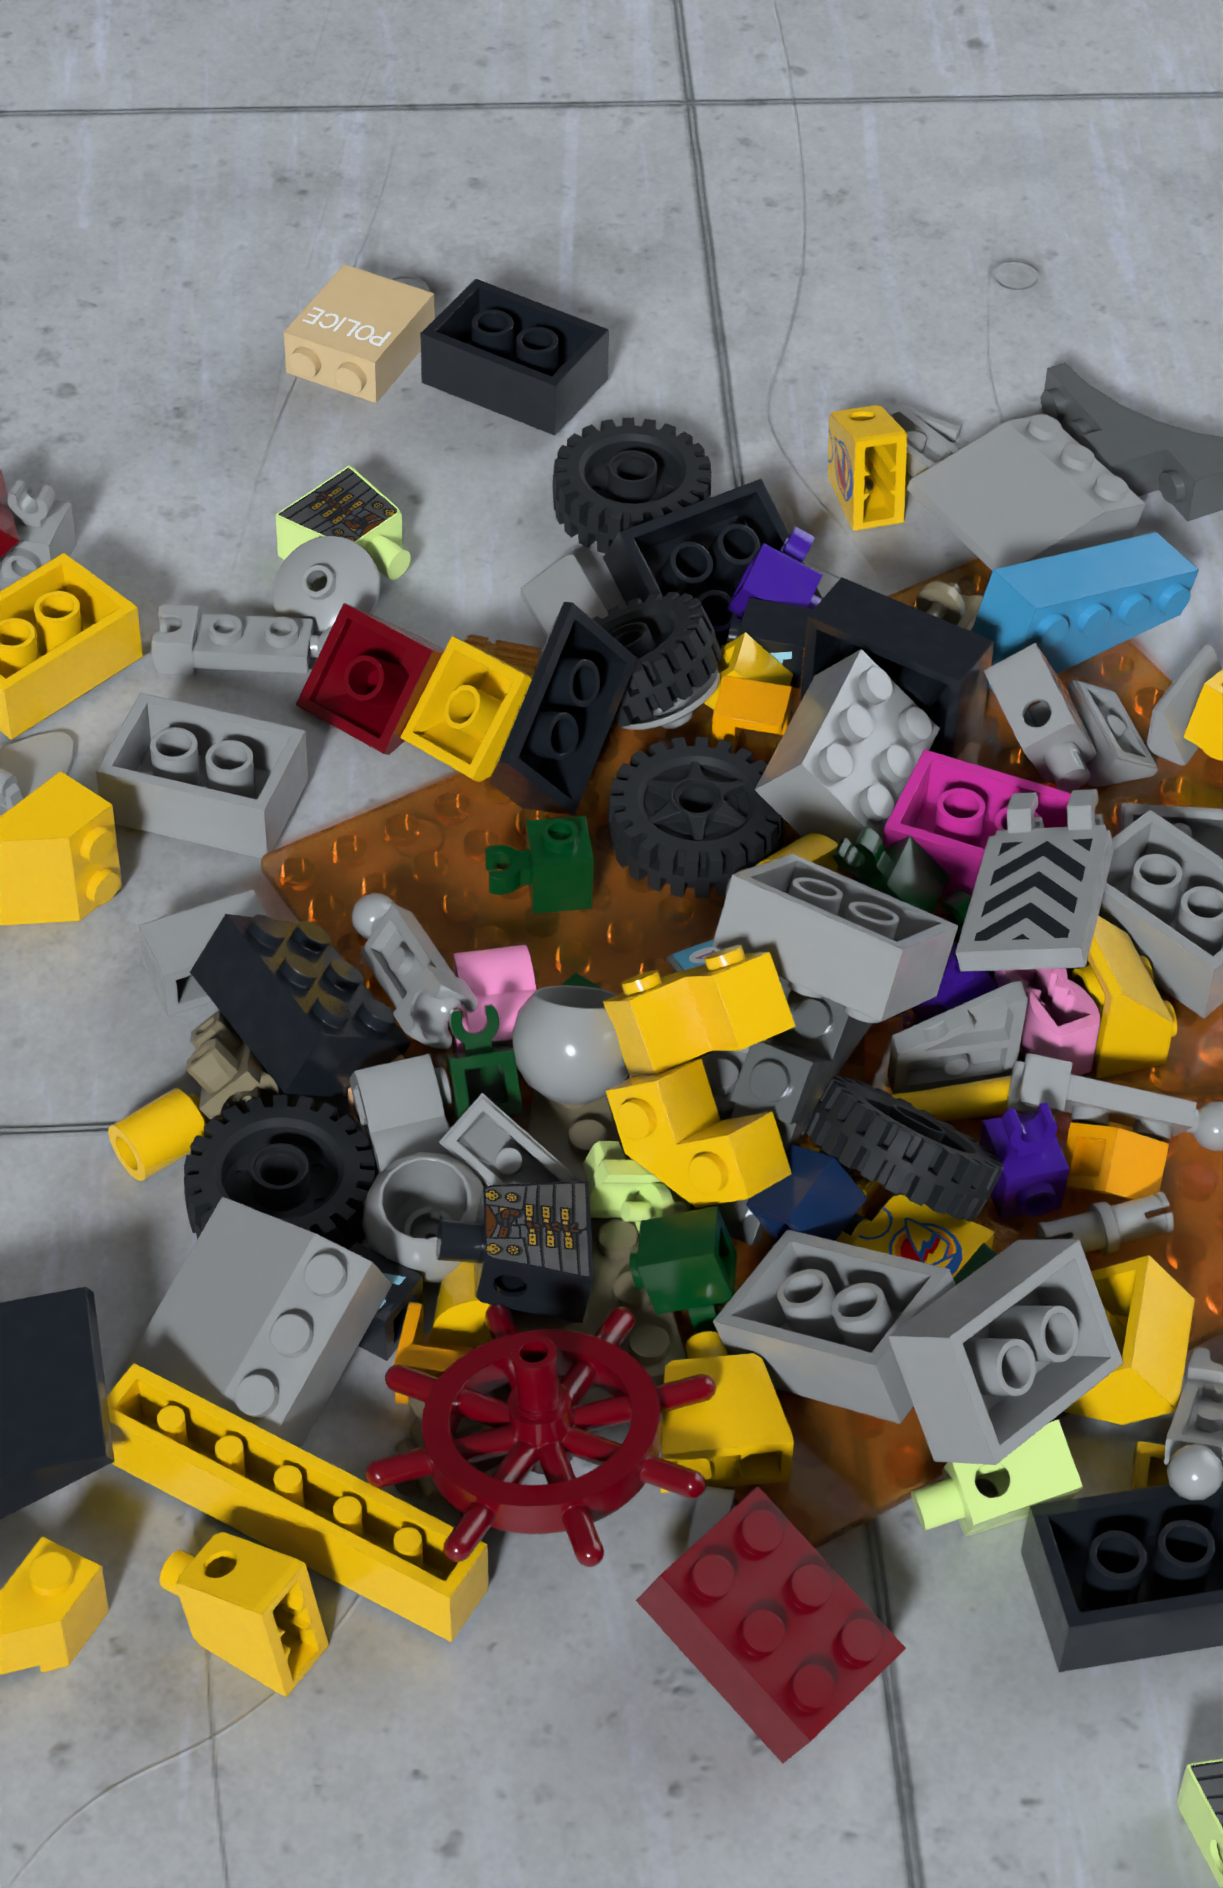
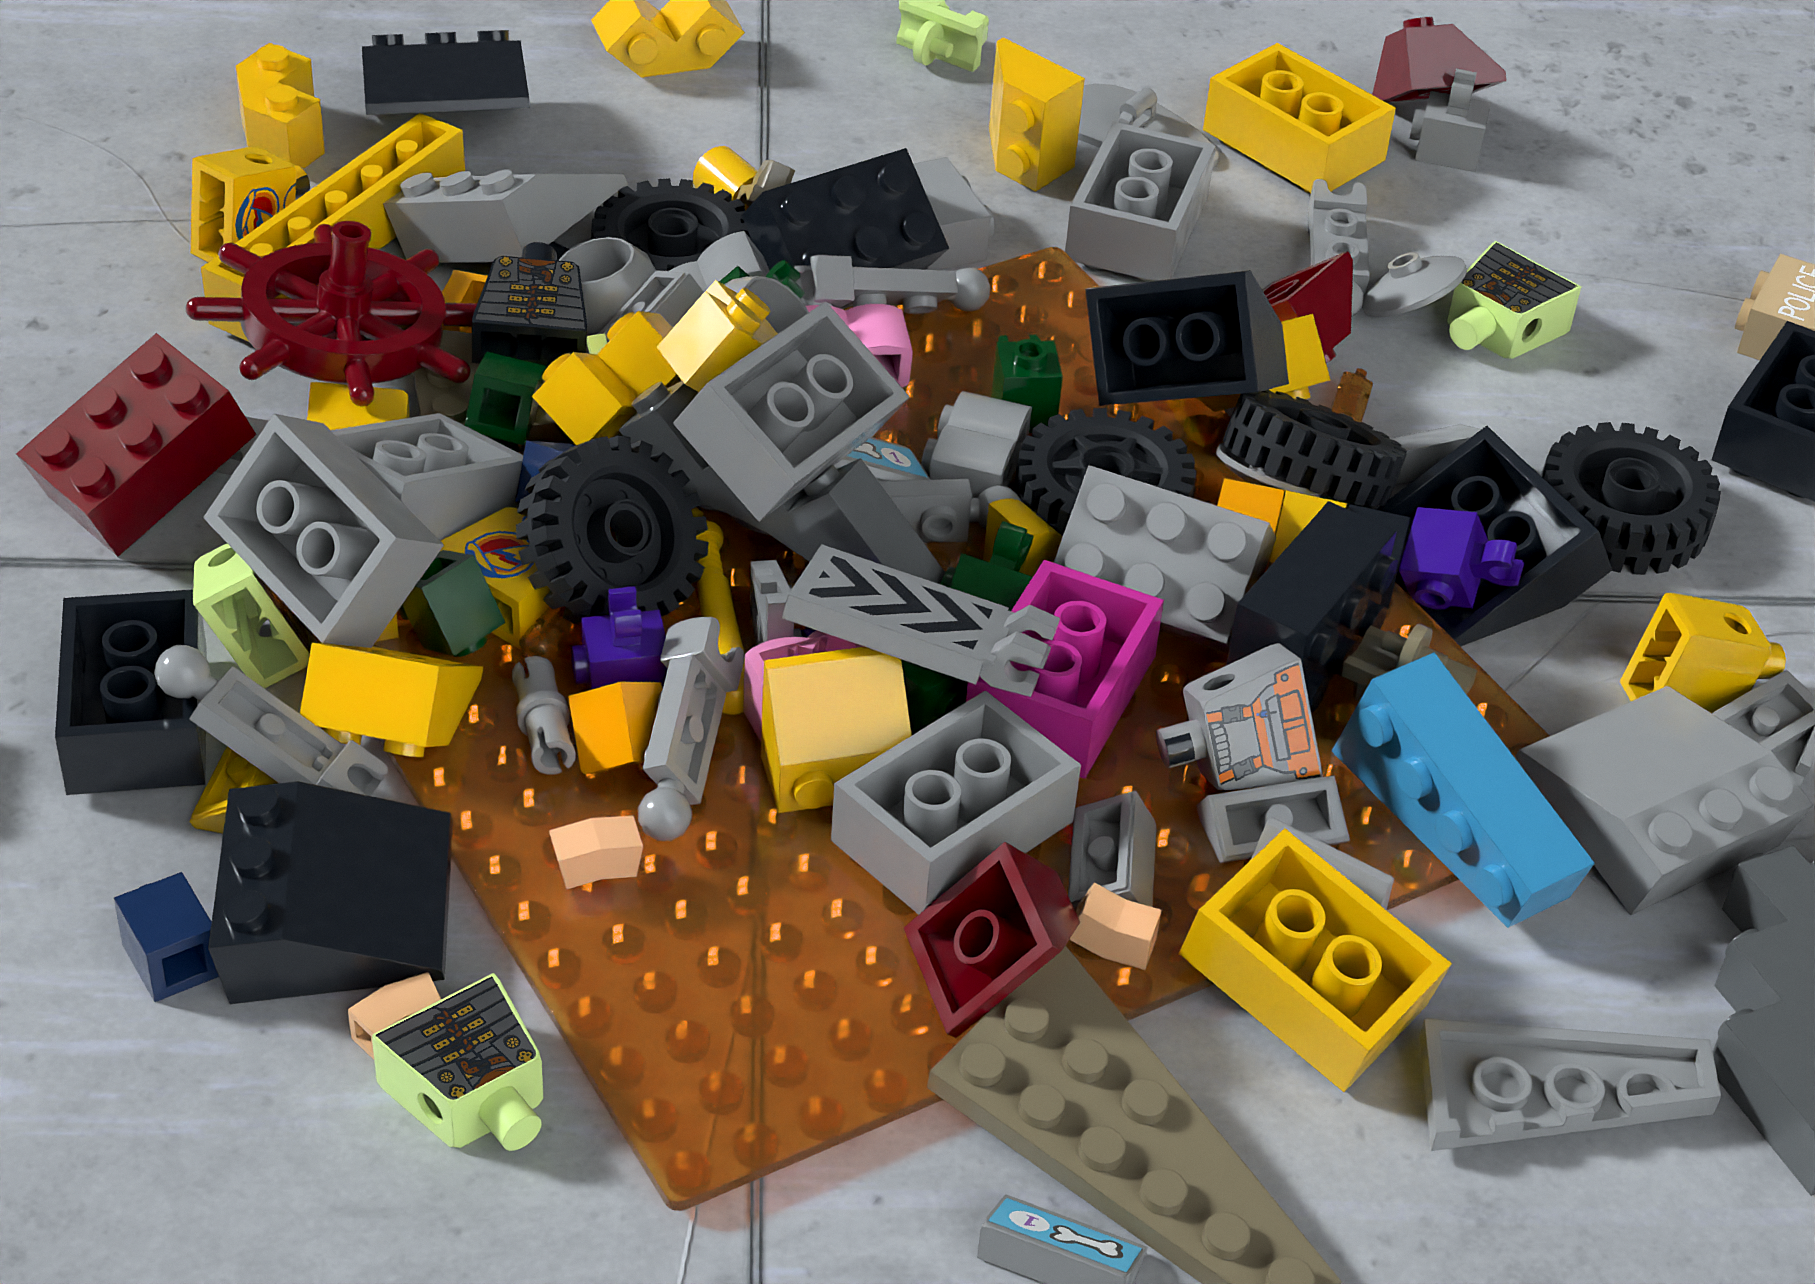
camera: 90 degrees right, 5 degrees down
(654, 903) = (978, 441): none -> light grey brick

